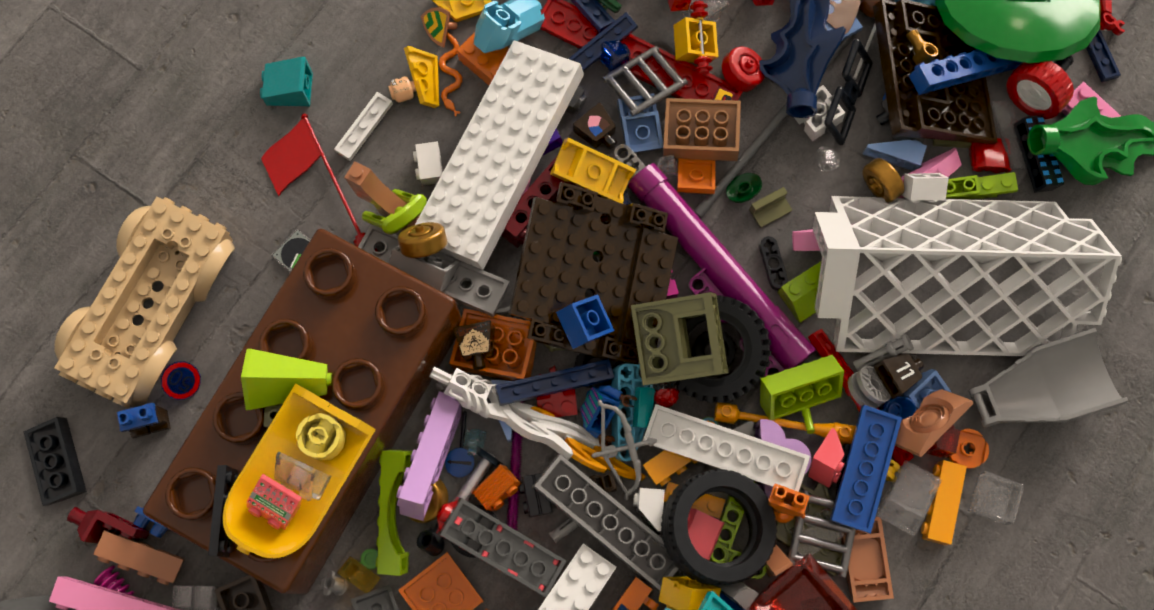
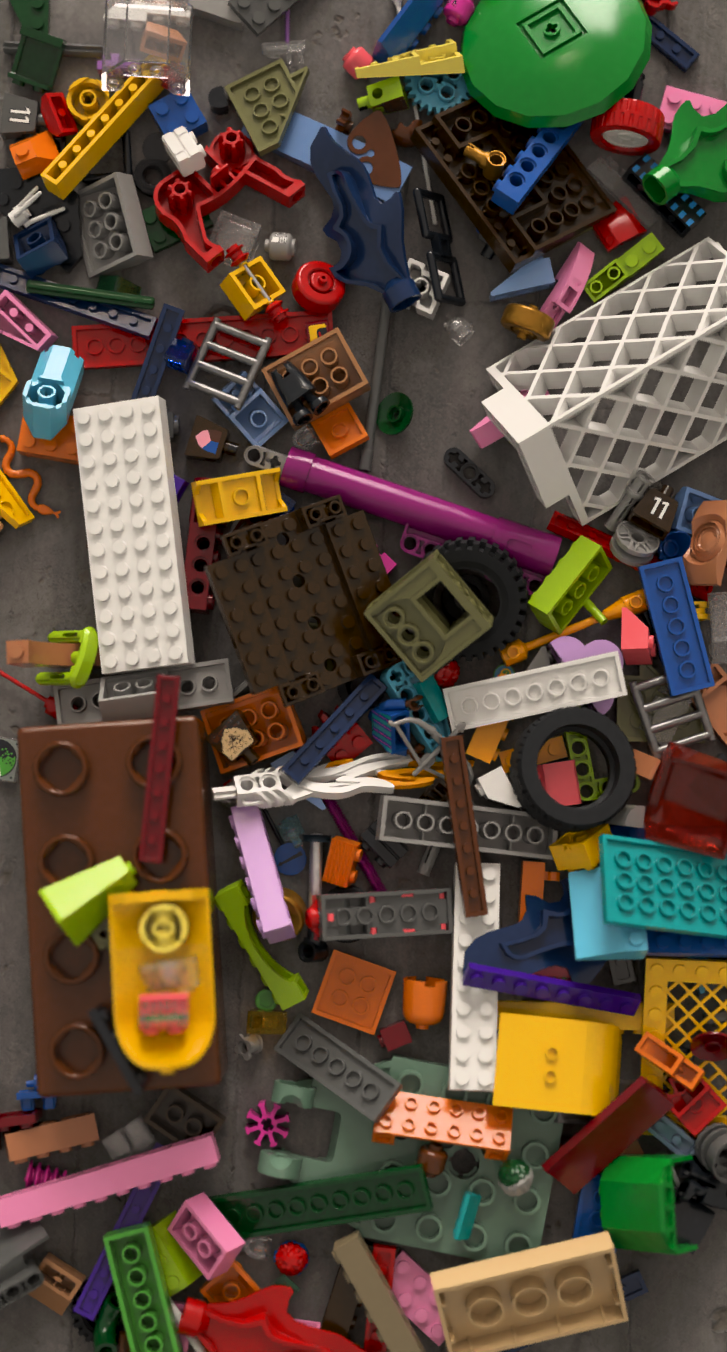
camera: 30 degrees left, 10 degrees up
(400, 318) = (159, 769): none -> dark red tile
(422, 240) = (121, 675): pearl gold wheel -> none
(429, 163) = (65, 584): white brick -> none
(585, 321) = (329, 656): blue brick -> none
(605, 518) = (463, 826): none -> reddish brown plate
(681, 121) = (295, 387): none -> black piece
(733, 27) = (280, 246): none -> light grey head
(770, 207) = (433, 417): olive panel -> none
(787, 503) = (622, 707): orange hips -> none
(801, 293) = (515, 488): lime slope -> none
(925, 187) = (572, 305): white brick -> none

